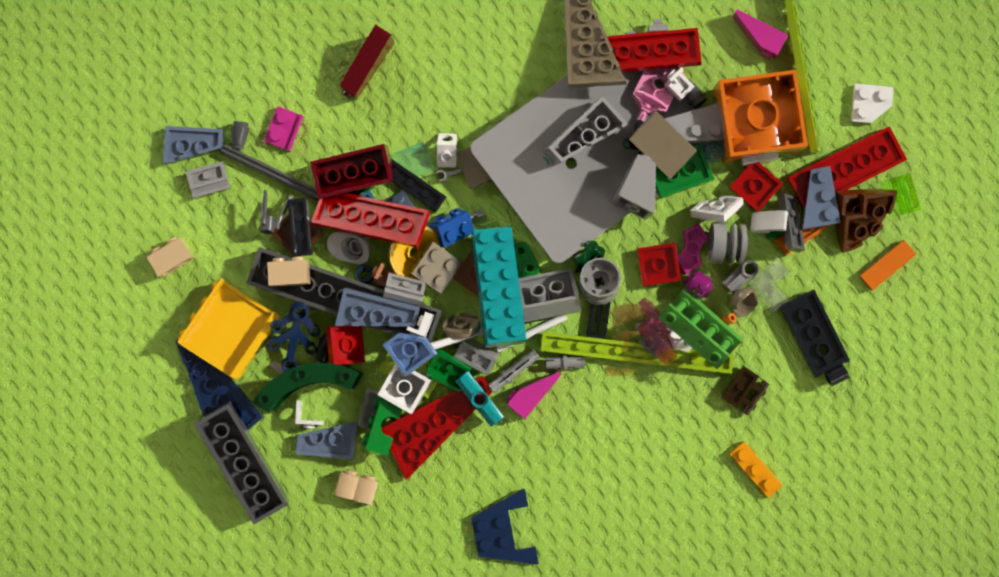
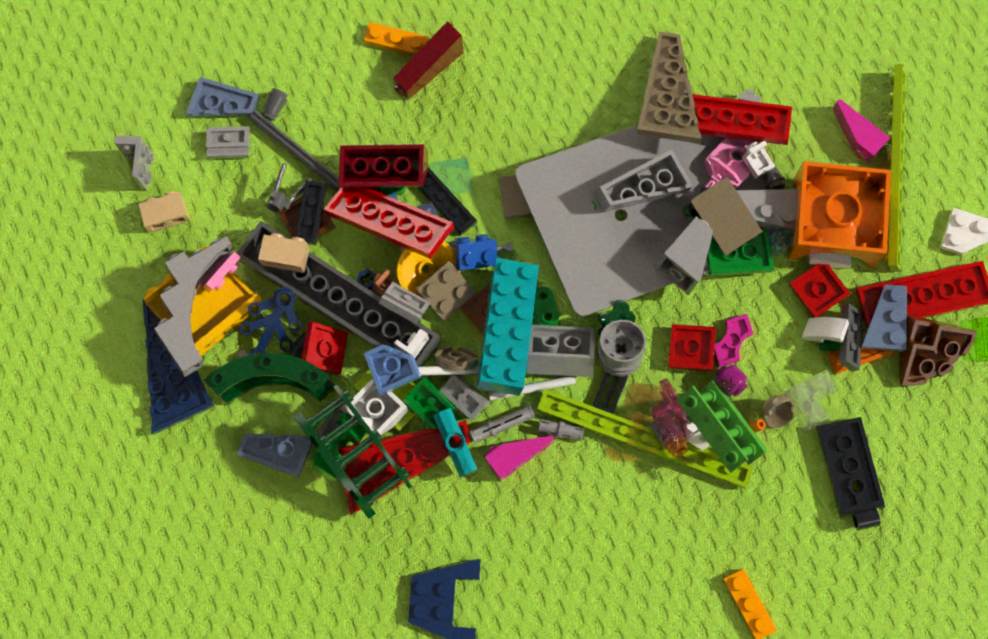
camera: 15 degrees right, 10 degrees down
(137, 212) = (138, 151): none -> light grey bracket
(209, 338) = (178, 300): none -> light grey arch
(233, 299) = (214, 277): none -> bright pink bracket
(242, 462) = (174, 446): dark grey brick -> none
(284, 128) = (323, 110): dark pink plate -> none
(306, 423) = (258, 424): white bracket -> none
(330, 46) = (394, 39): none -> light orange plate
(349, 247) = (357, 246): light grey piece -> none
(356, 487) = (293, 508): tan brick -> none
(372, 310) = (359, 314): sand blue wing -> none
(387, 446) = (338, 464): none -> dark green fence
(446, 150) = (489, 173): white bracket -> none
(449, 173) = (483, 197): light grey hand -> none
(717, 210) = (770, 303): white plate -> none
(727, 243) = (774, 341): light grey wheel -> none
(740, 277) = (779, 383): light grey piece -> none
(740, 387) = (753, 505): dark brown plate -> none
(887, 265) = (950, 412): orange tile -> none

